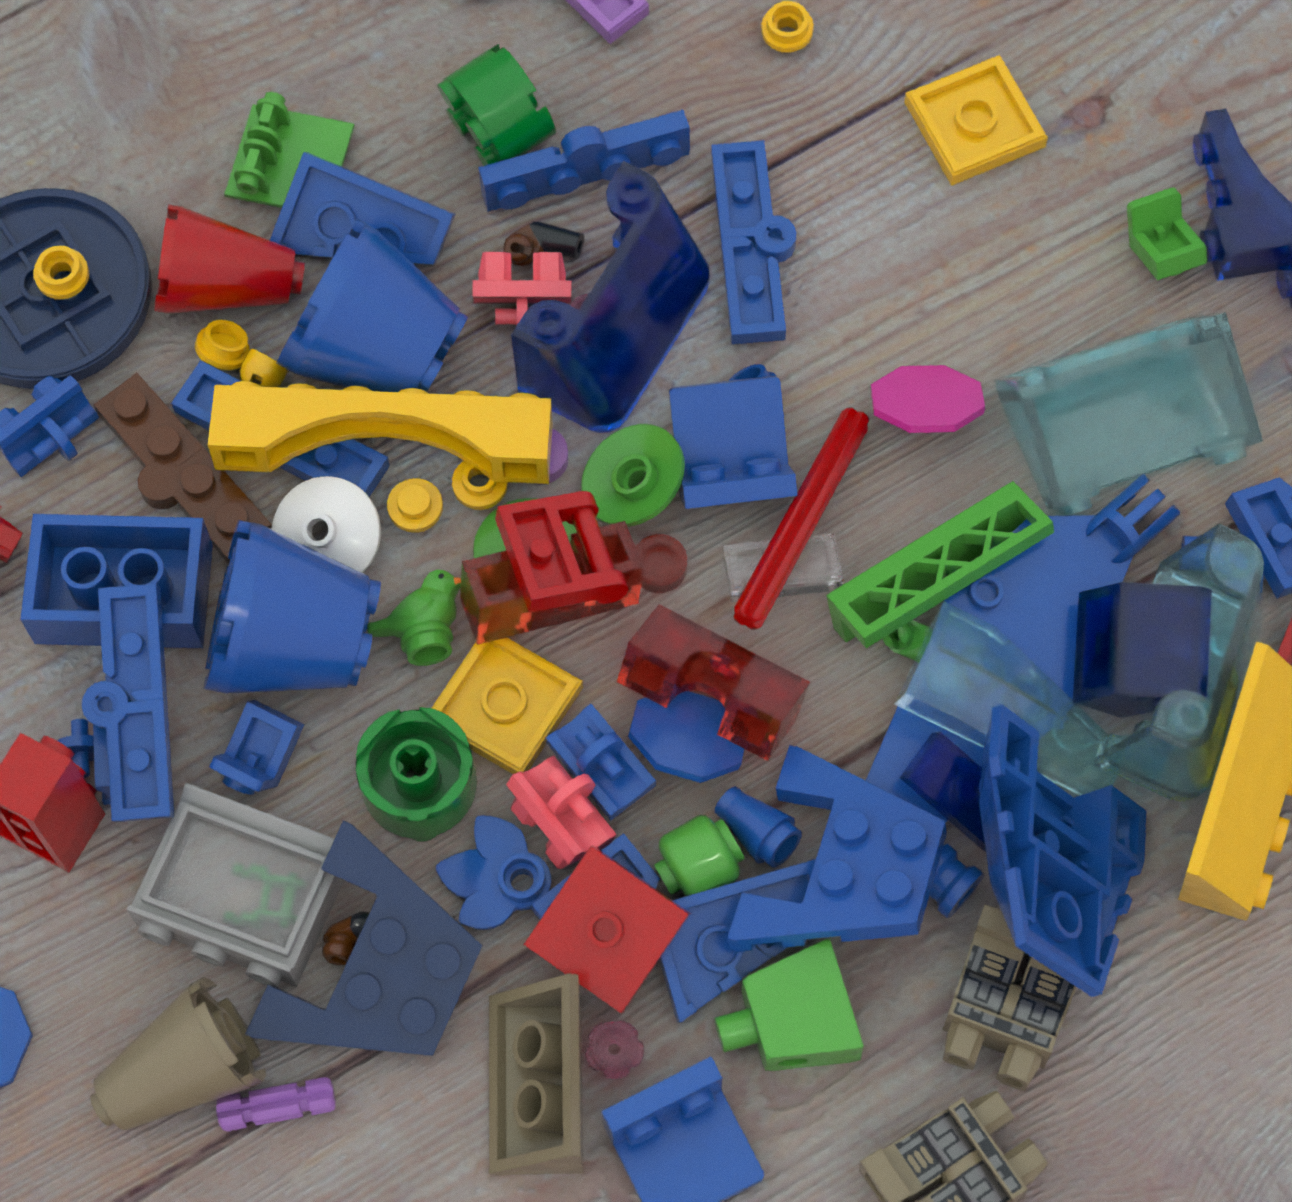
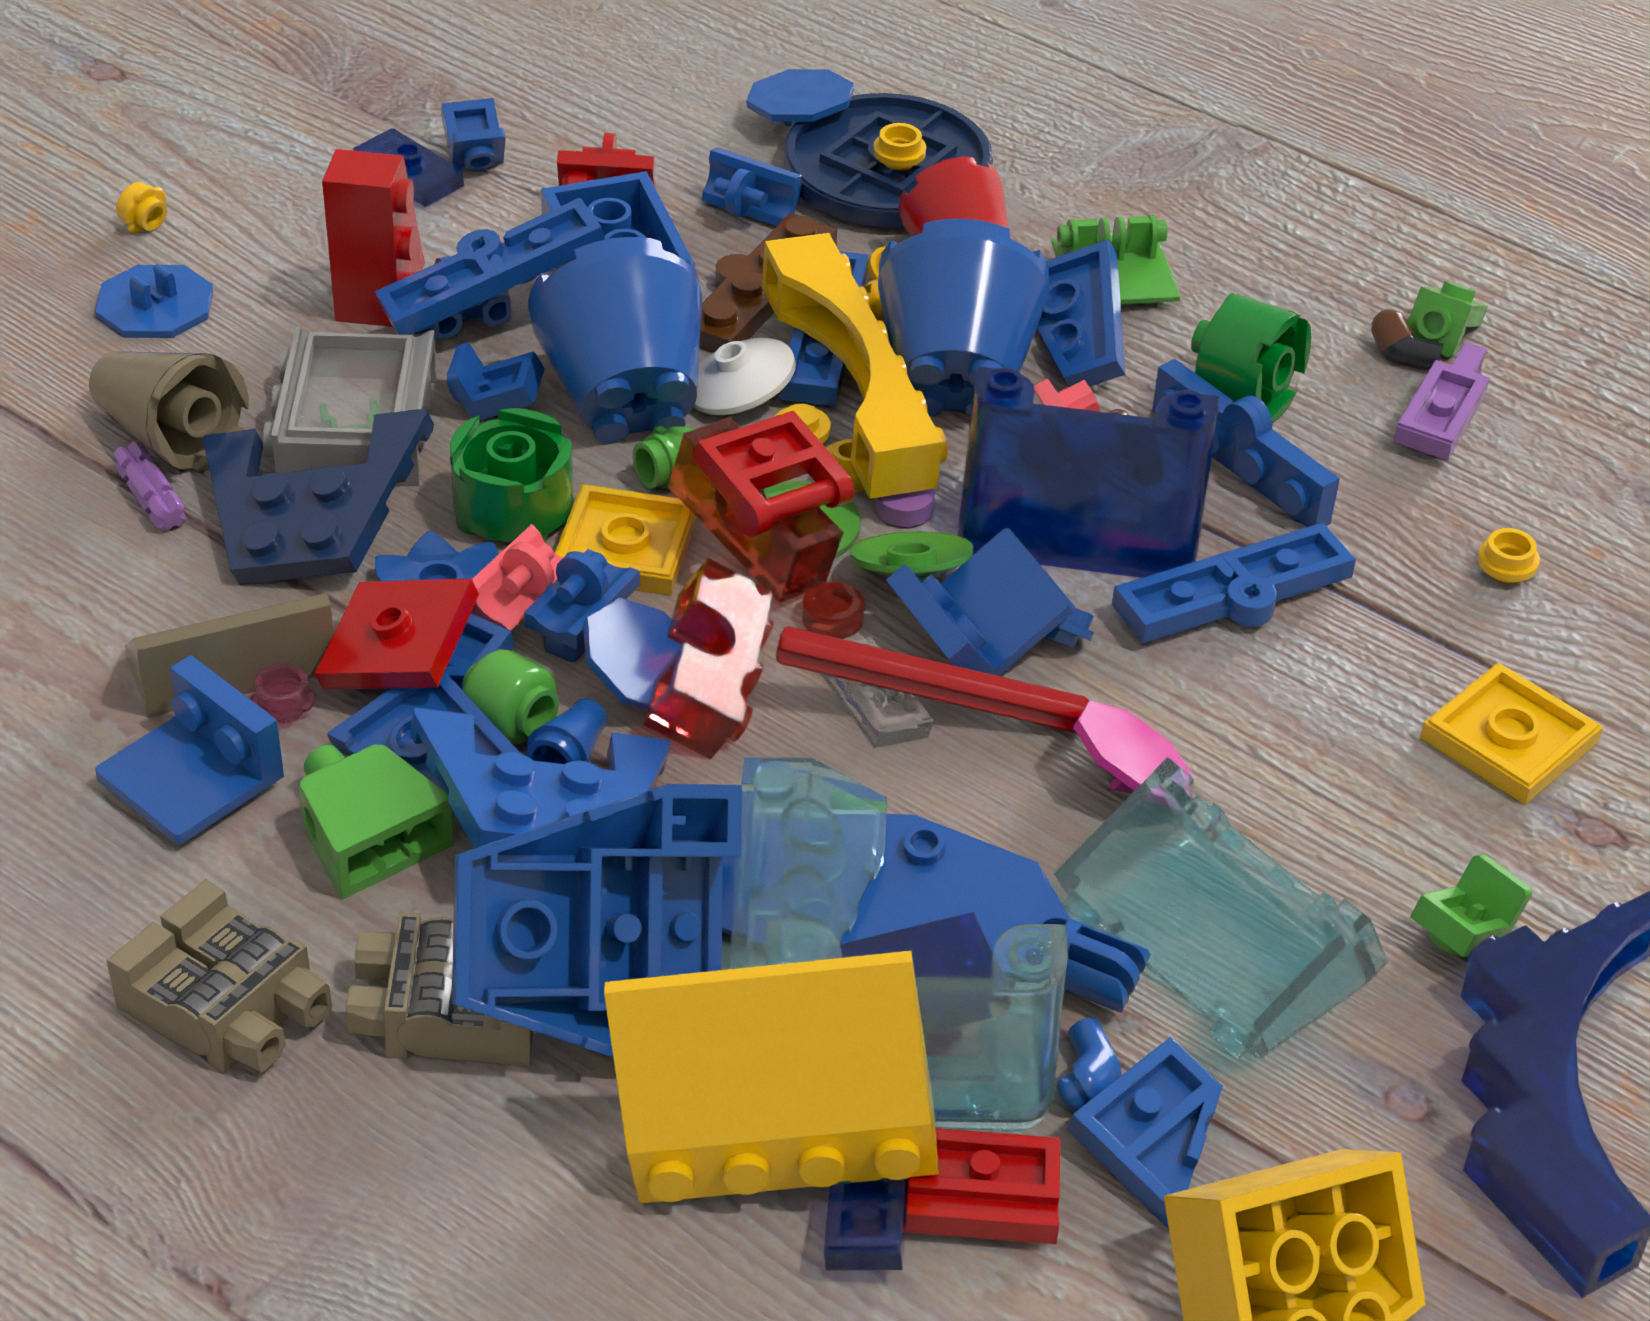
camera: 65 degrees right, 25 degrees down
(937, 565) = (936, 792): bright green fence -> none

